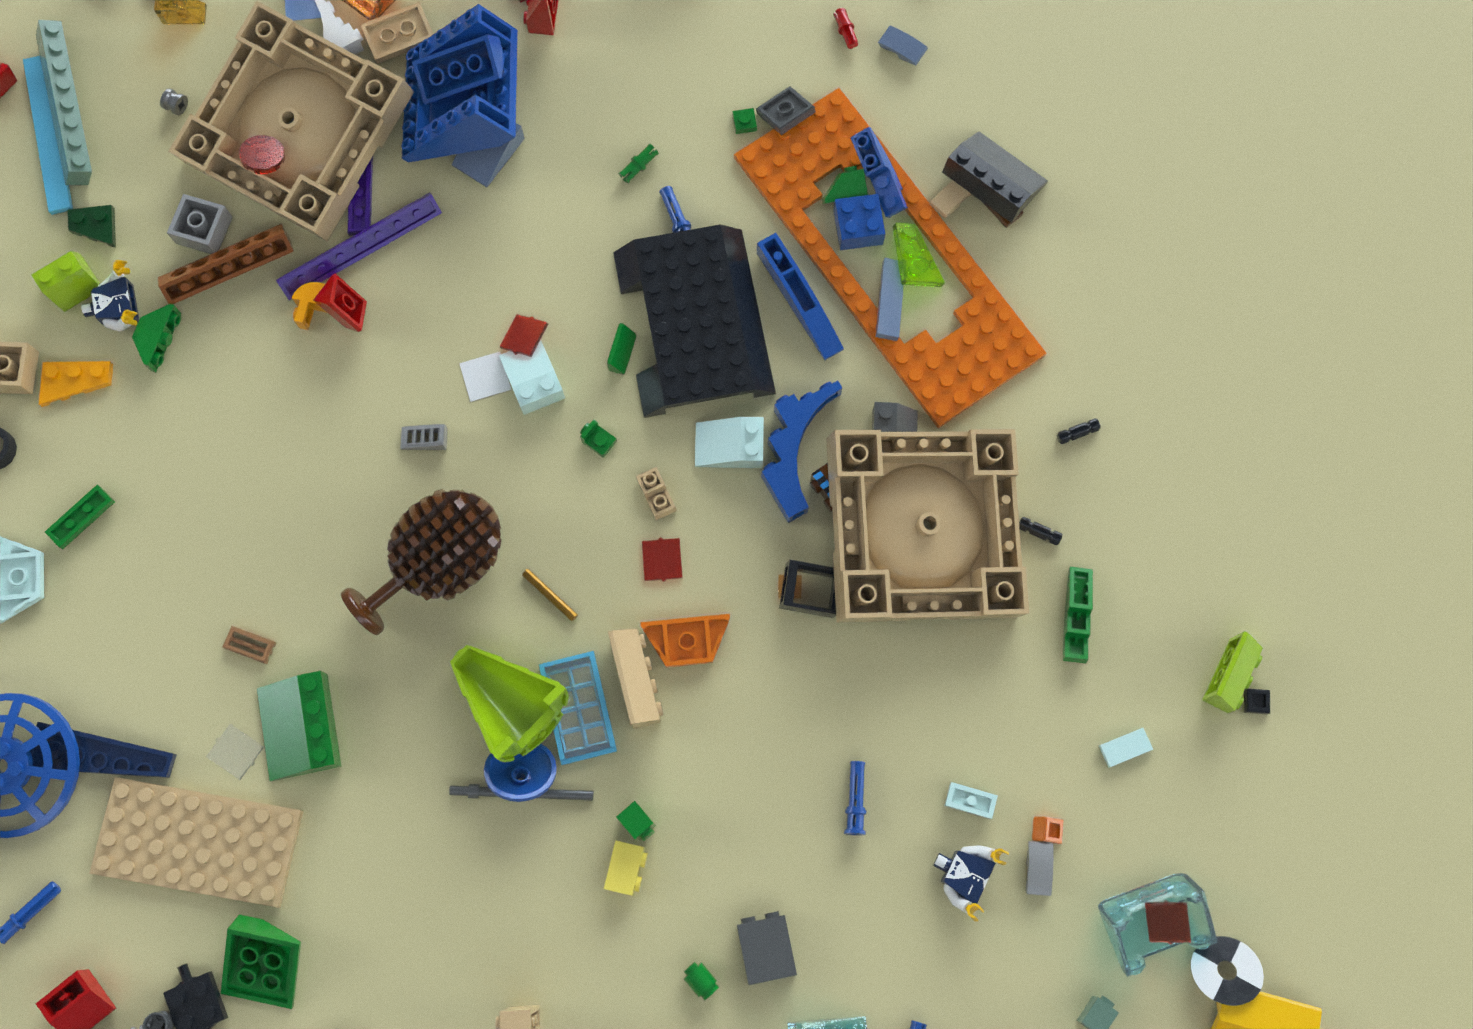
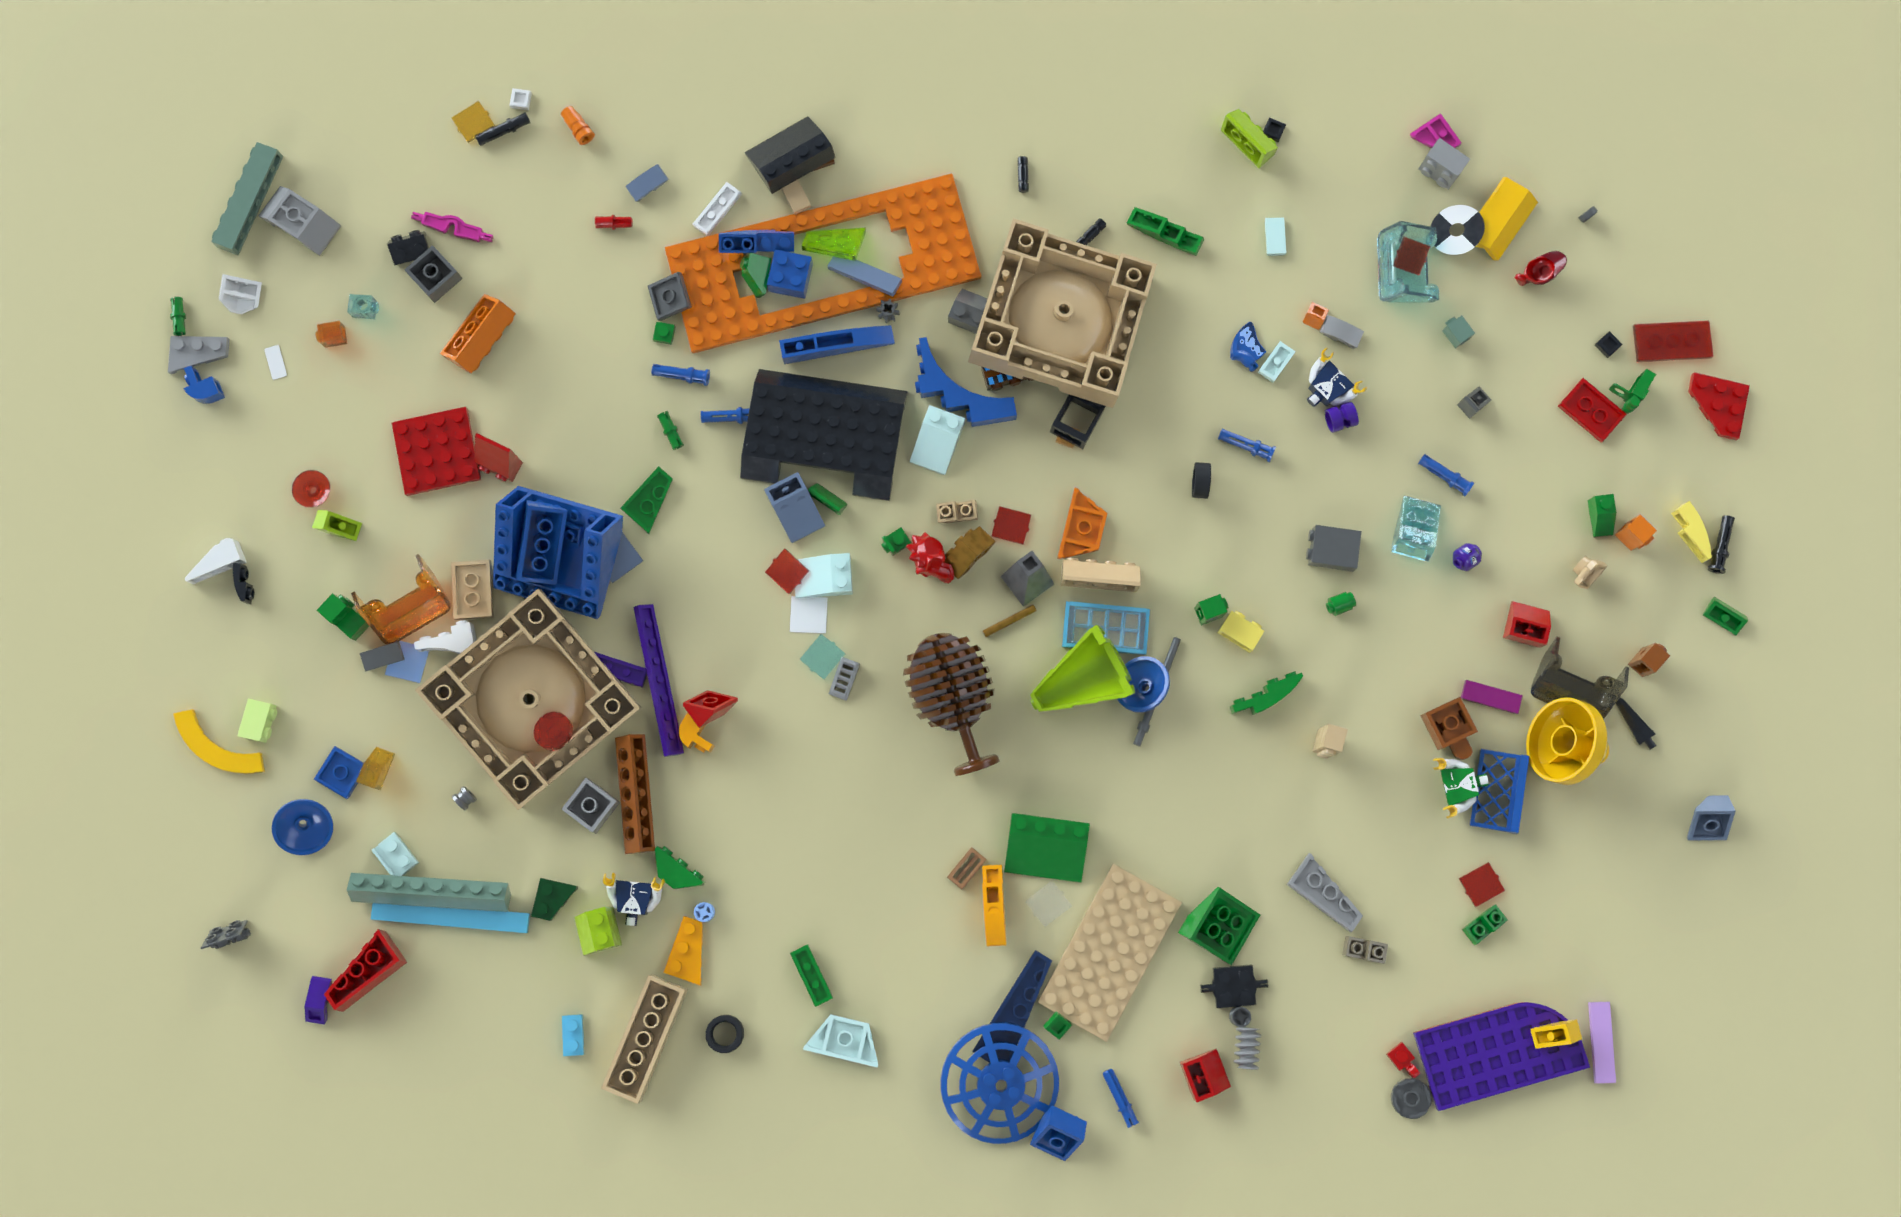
camera: 70 degrees left, 5 degrees up
(93, 809) = (1057, 1025): none -> green plate
(96, 60) = (395, 855): none -> light aqua plate
(117, 375) = (701, 912): none -> light blue wheel
(210, 687) = (994, 905): none -> light orange slope
(442, 406) = (822, 656): none -> clear light blue piece
(554, 167) = (648, 499): none -> green wing
(563, 935) = (1274, 692): none -> green slope
(588, 476) = (930, 558): none -> red head
(597, 316) = (794, 507): none -> sand blue slope
(603, 597) = (1027, 578): none -> flat silver slope
(611, 518) = (968, 550): none -> pearl gold brick
(707, 161) = (690, 375): none -> blue pin
(789, 757) = (1201, 480): none -> black tyre
(861, 343) = (886, 315): none -> dark grey gear
(903, 125) = (717, 209): none -> white tile
(932, 903) = (1339, 417): none -> dark purple wheel
(975, 759) = (1247, 347): none -> blue arm
(1303, 924) = (1443, 164): none -> light grey brick
(1337, 905) = (1435, 129): none -> dark pink wing

